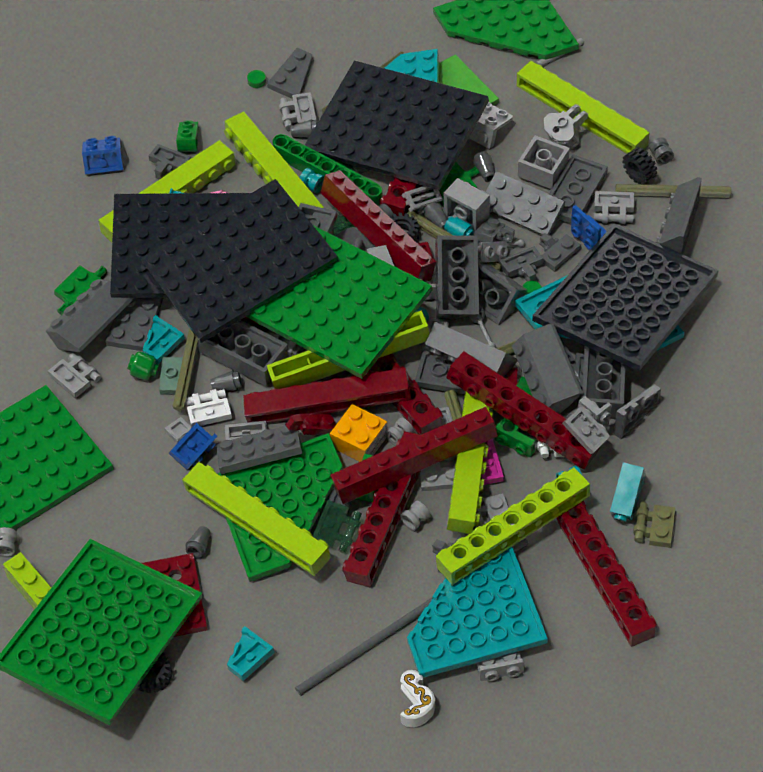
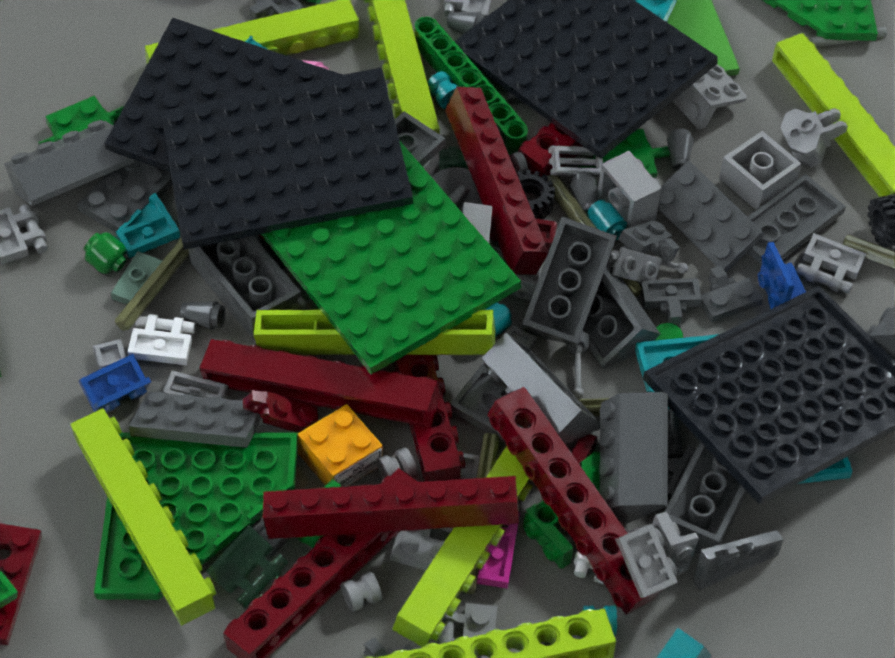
camera: 15 degrees right, 0 degrees up
(198, 542) = (55, 517): dark grey cone -> none

